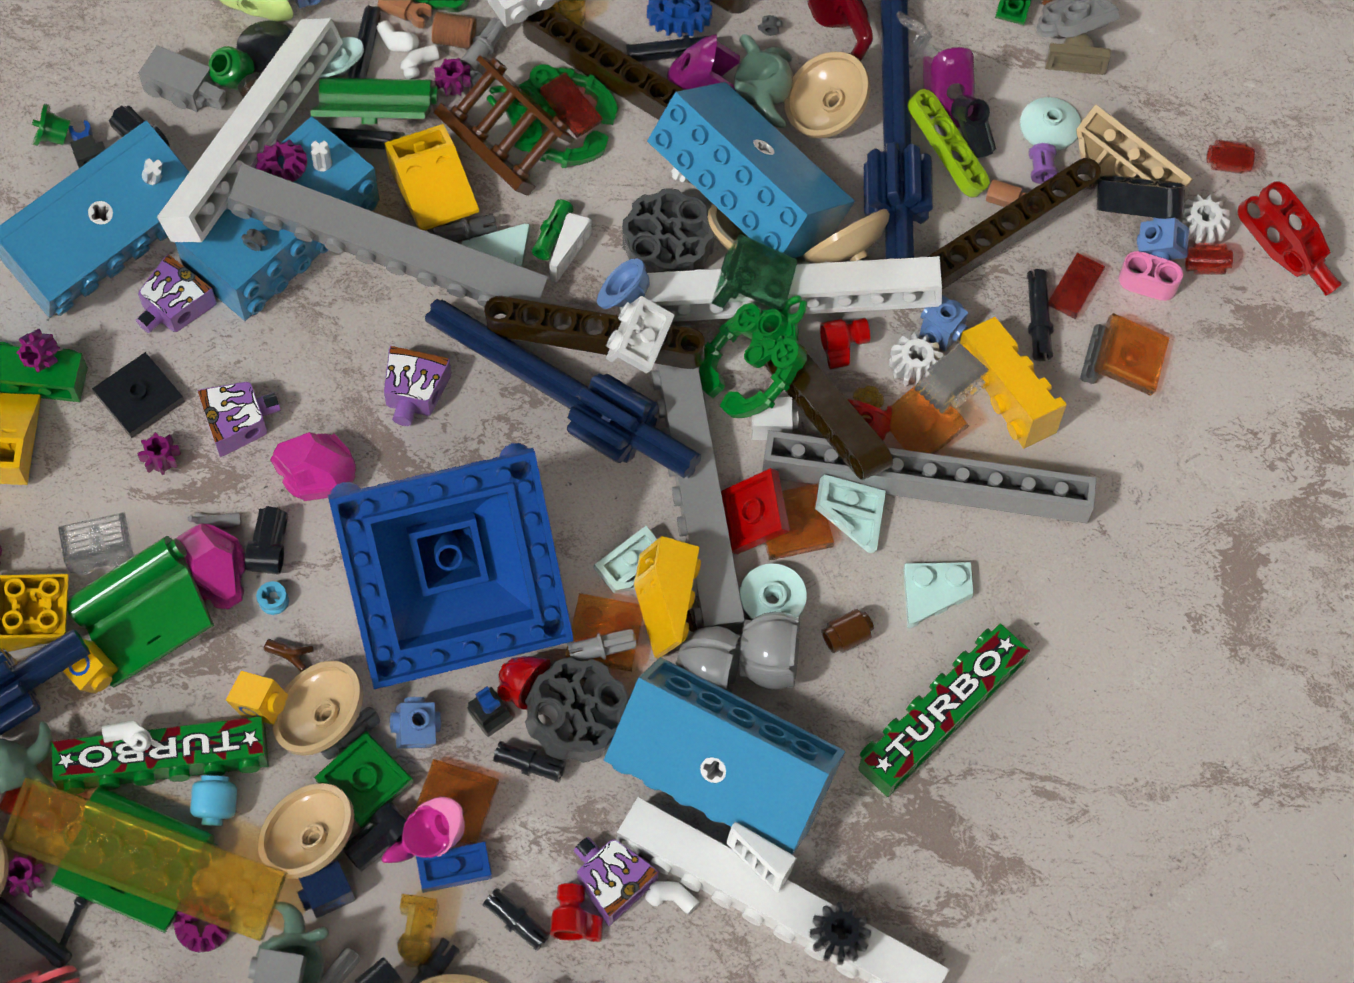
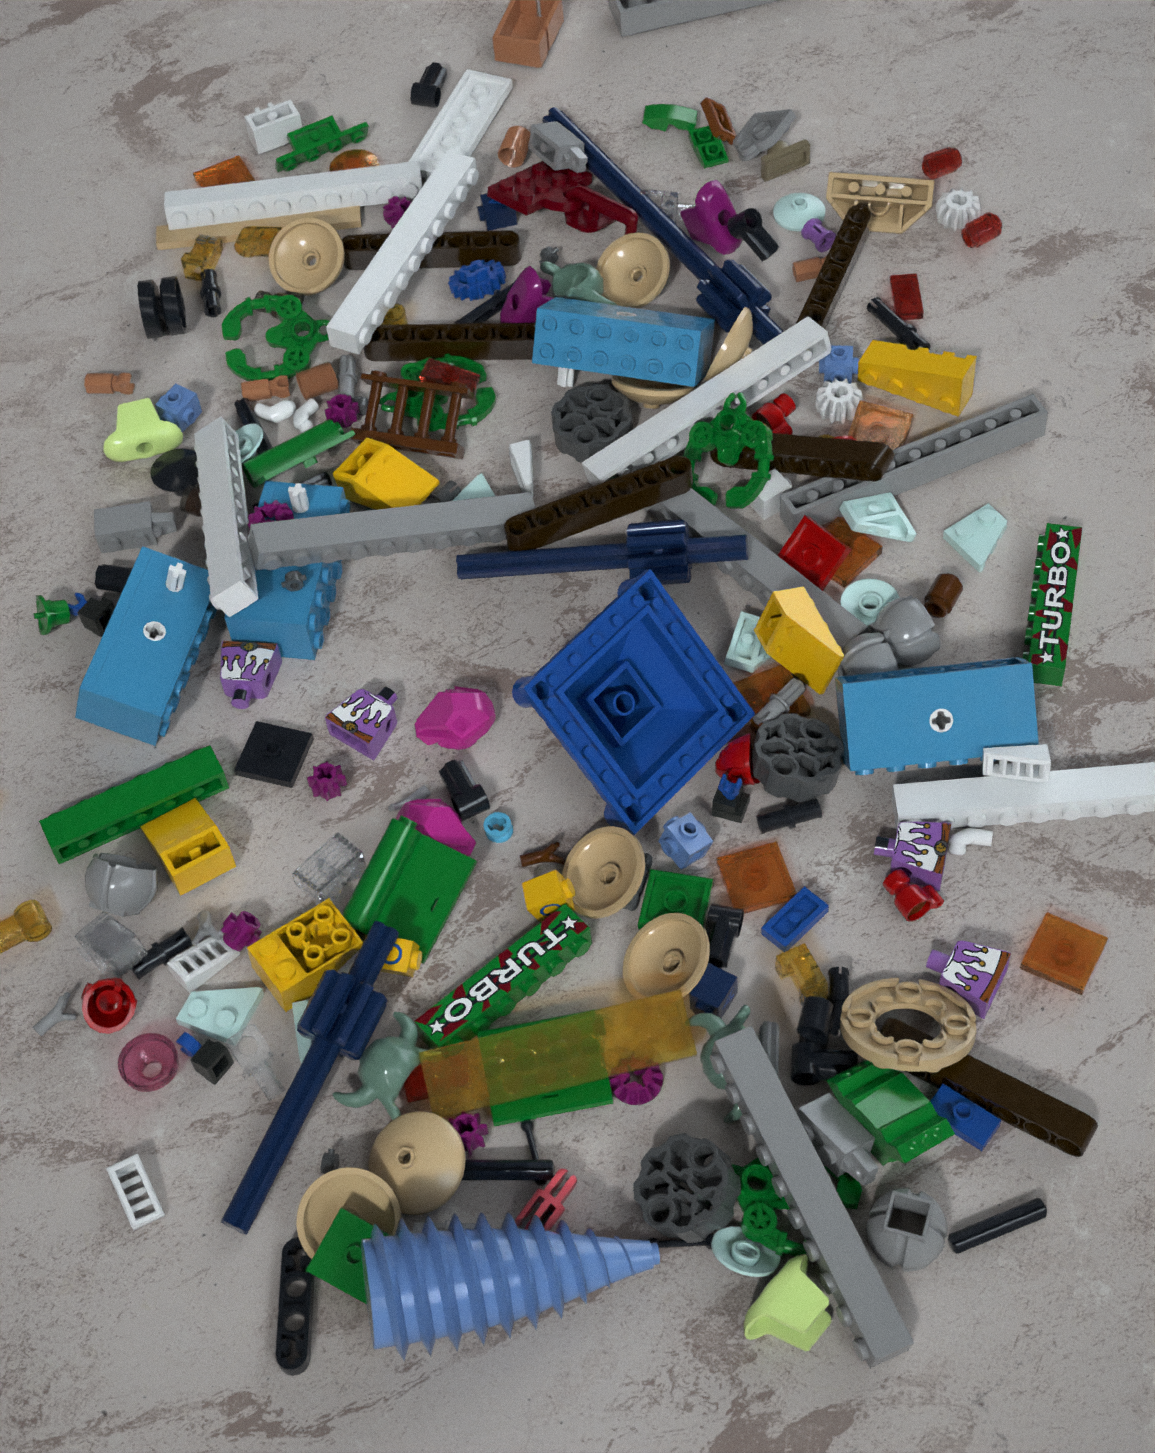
camera: 25 degrees left, 10 degrees down
(38, 350) = (179, 748): magenta gear -> none
(130, 732) = (474, 974): white arm -> none
(213, 799) = (573, 986): medium azure head -> none
(230, 66) = (164, 494): green head -> none
(414, 383) = (484, 621): torso -> none
(429, 831) = (763, 895): dark pink hair -> none
(516, 919) = (871, 924): black pin -> none
(551, 230) = (500, 456): green pin -> none
(624, 284) = (596, 459): medium blue piece -> none
(639, 334) = (639, 478): white bracket -> none
(755, 273) = (680, 394): clear green bracket -> none
(850, 926) = (1117, 777): black gear -> none
(944, 144) = (751, 258): lime beam -> none
(952, 379) = (882, 389): clear brick -> none
(1088, 373) = (956, 330): dark grey axle -> none
(1131, 354) = (982, 315): clear orange plate -> none
(1140, 197) = (907, 214): black beam -> none
(1149, 280) = (952, 261): bright pink beam -> none
(1164, 238) = (943, 233): medium blue brick -> none
(1297, 250) = (1045, 180): red piece -> none

